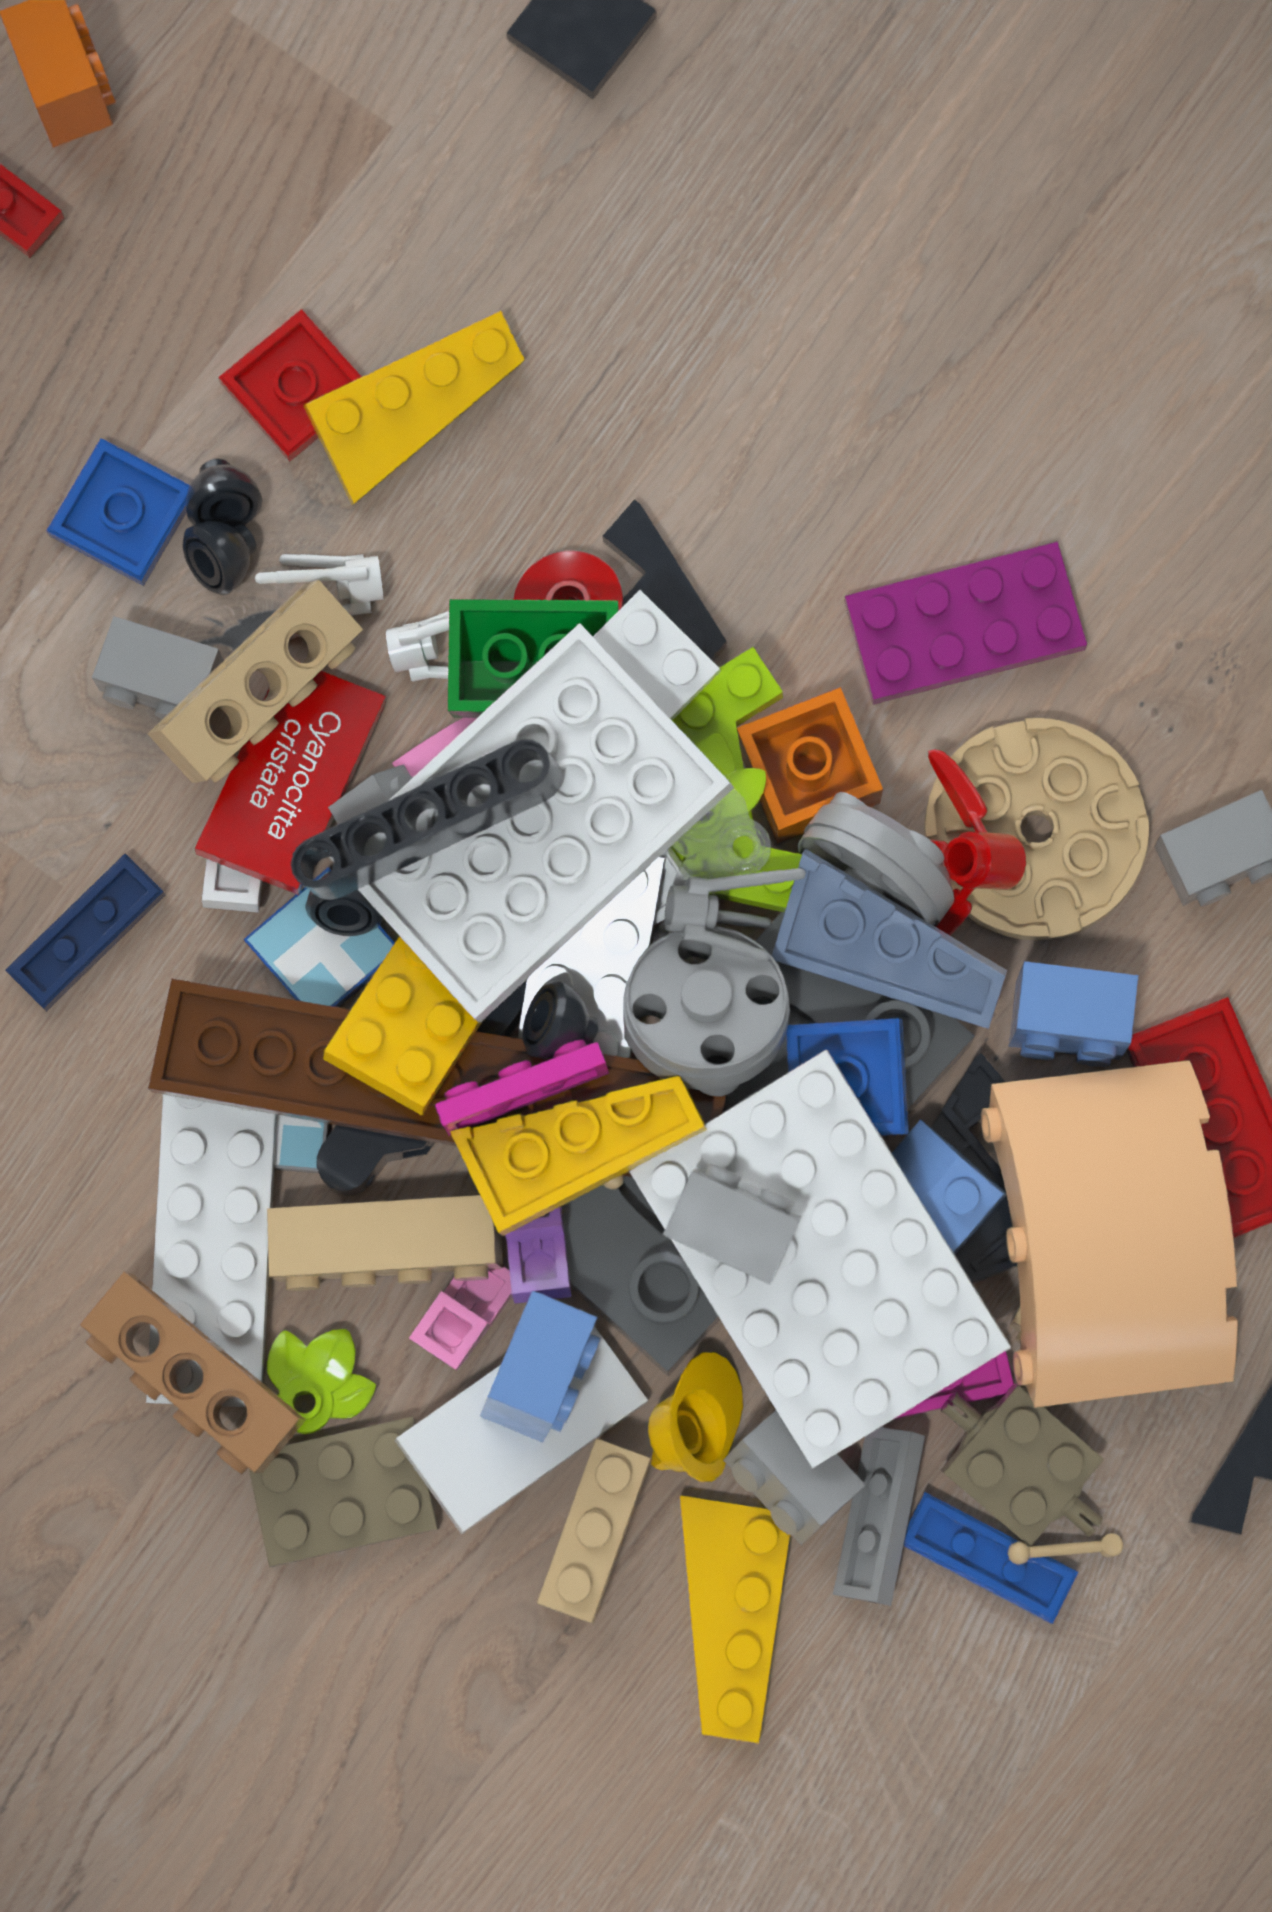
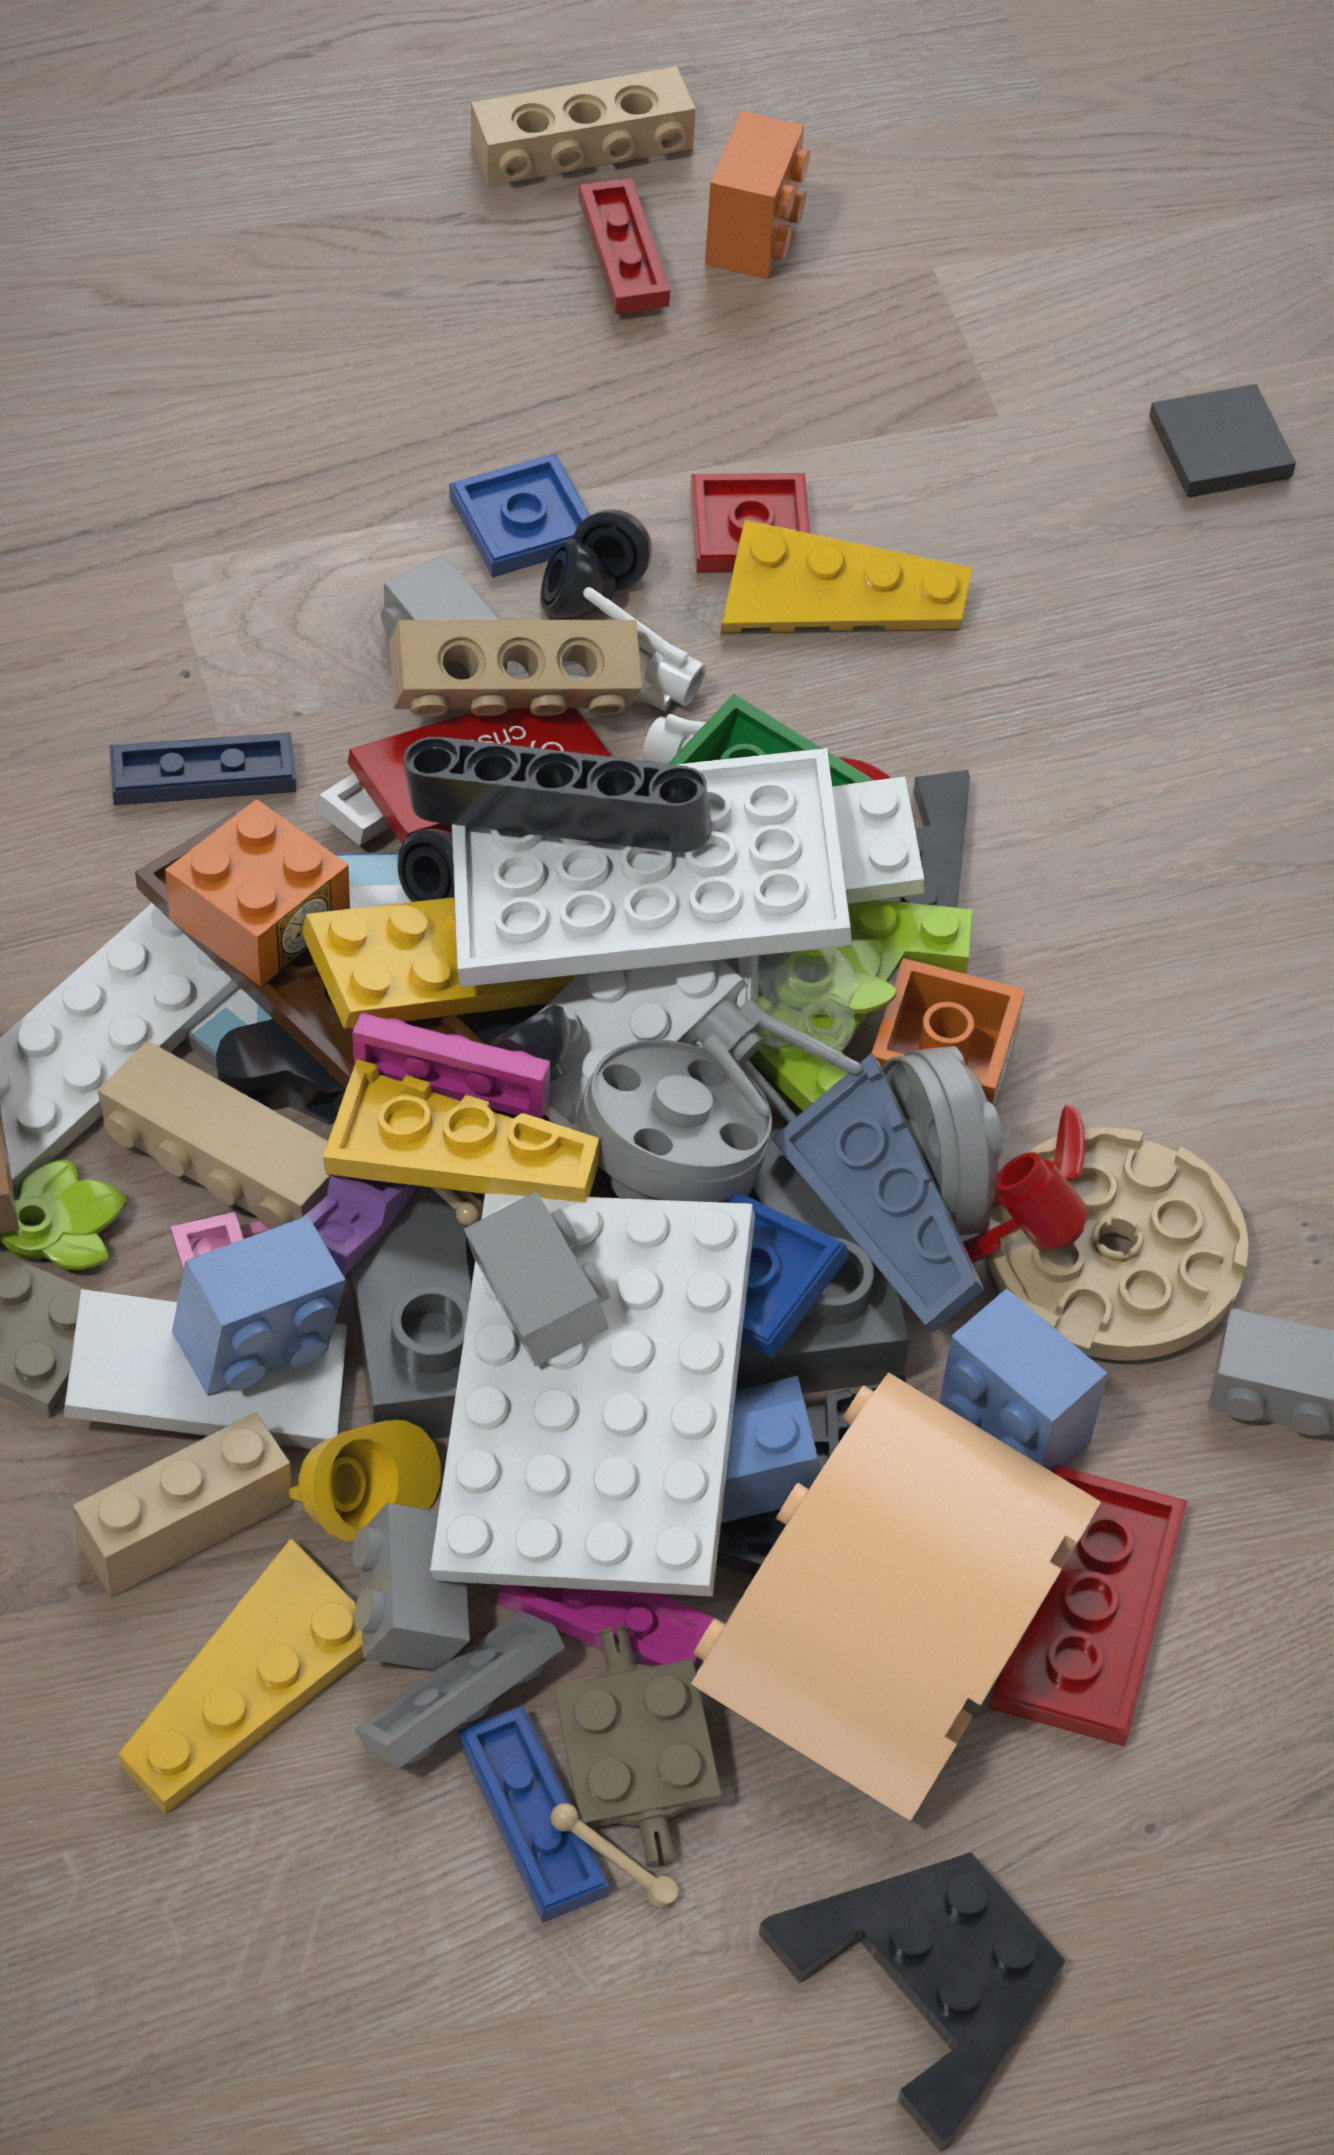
camera: 30 degrees right, 25 degrees down
(265, 1049) = (251, 889): none -> orange brick
(965, 623) = (1189, 1051): magenta plate -> none

